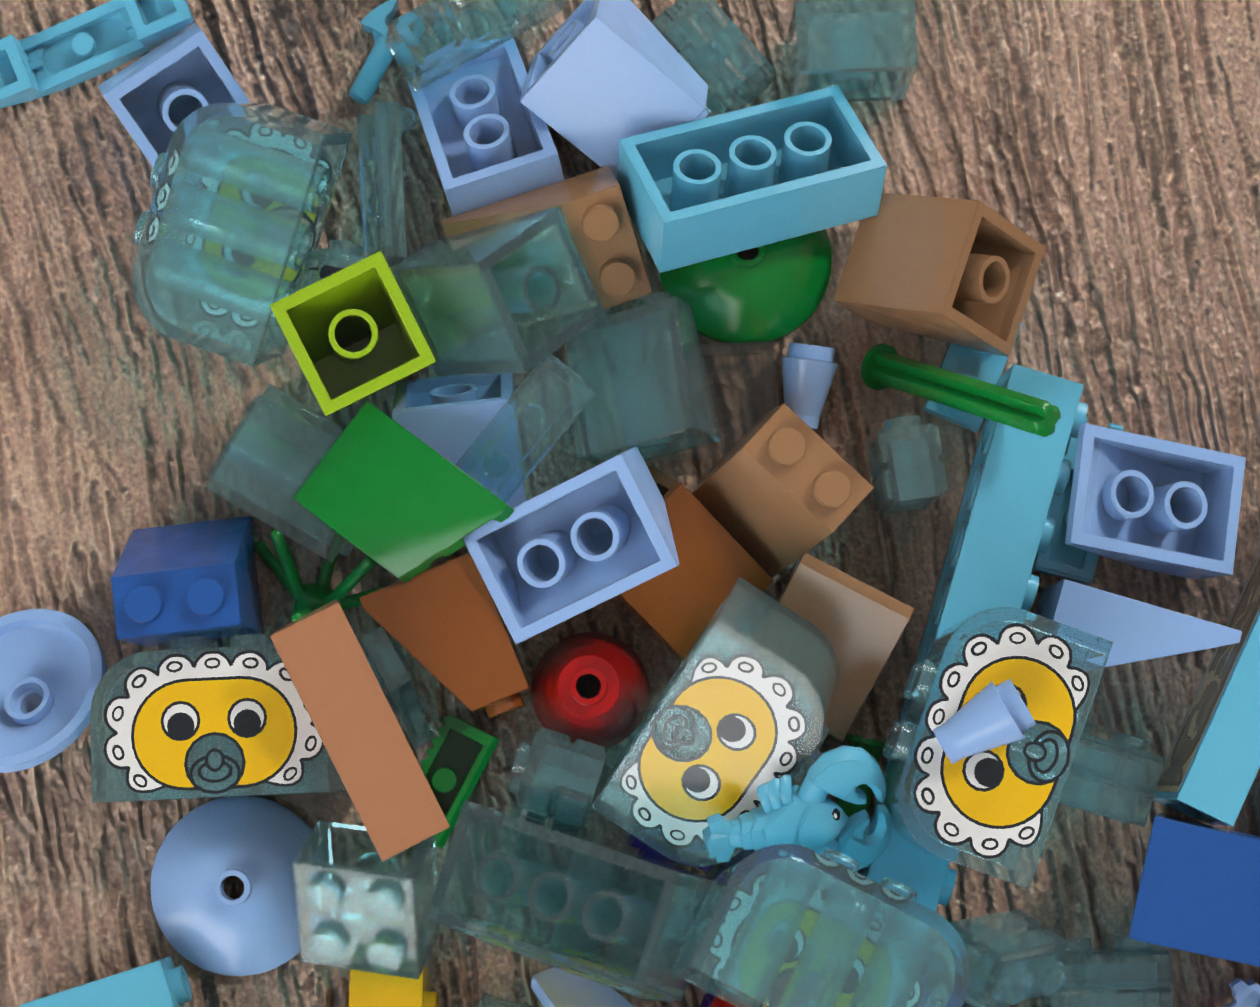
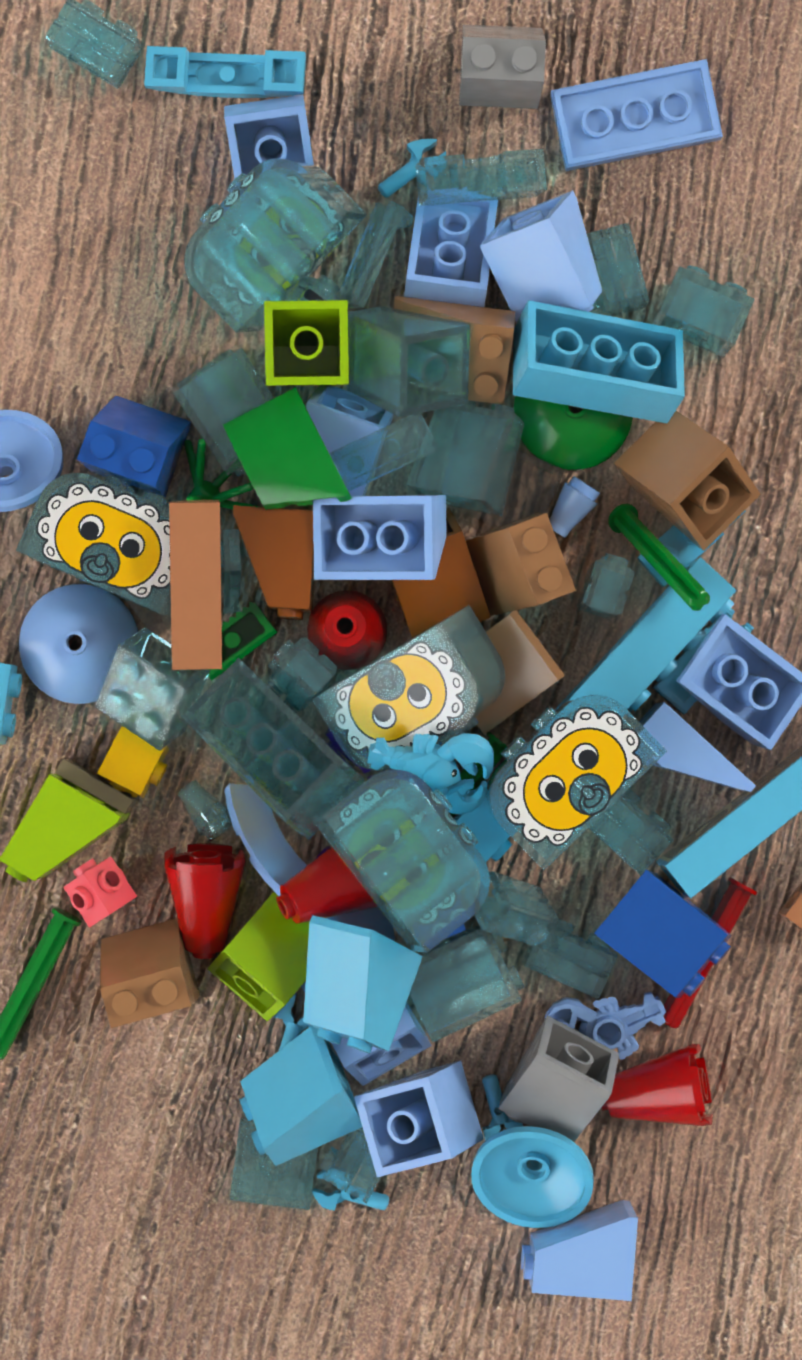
camera: 25 degrees right, 5 degrees up
(985, 722) = (567, 760): light blue cone -> none

